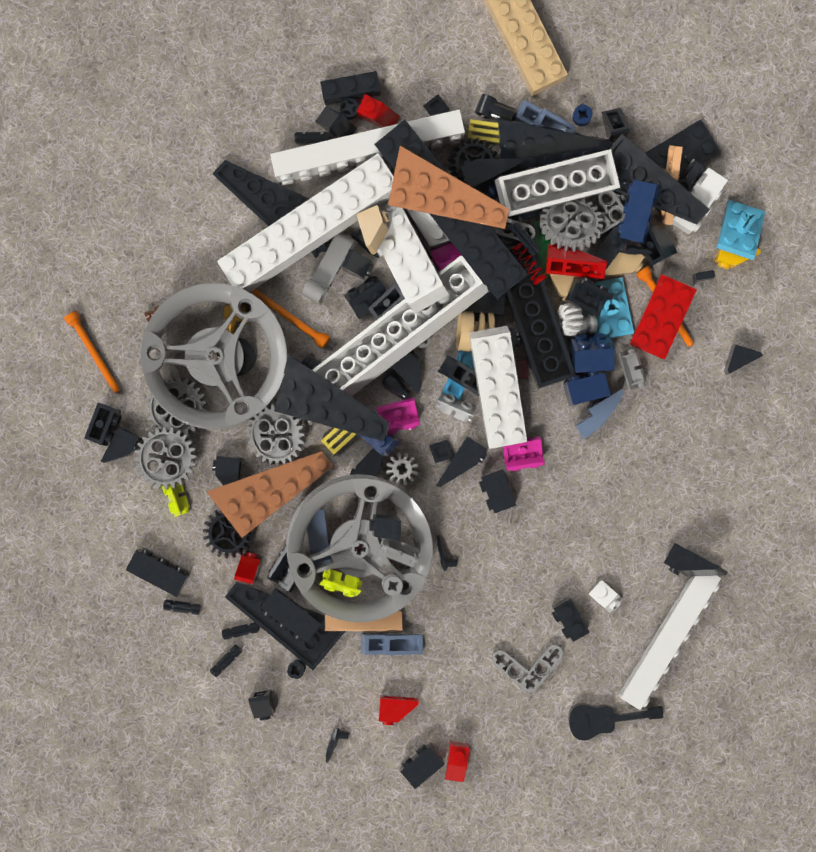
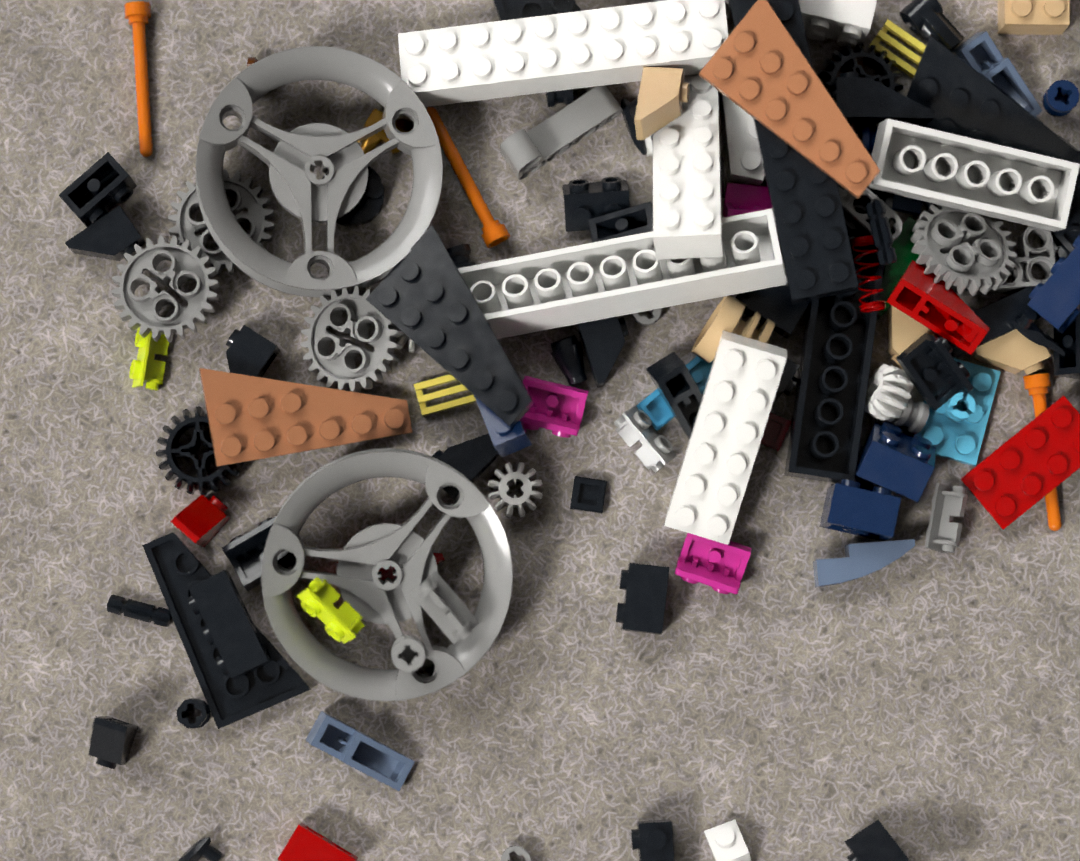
camera: 20 degrees right, 5 degrees down
(158, 571) = (62, 455): black brick -> none
(182, 607) = (69, 528): black axle -> none
(225, 661) = (92, 645): black axle -> none
(318, 536) = (334, 526): sand blue slope -> none
(357, 265) = (605, 147): black slope -> none
(385, 526) = (444, 557): black slope -> none
(388, 624) = (372, 715): light nougat tile -> none
(445, 563) = (509, 656): black bar -> none
(466, 458) = (617, 525): black slope -> none

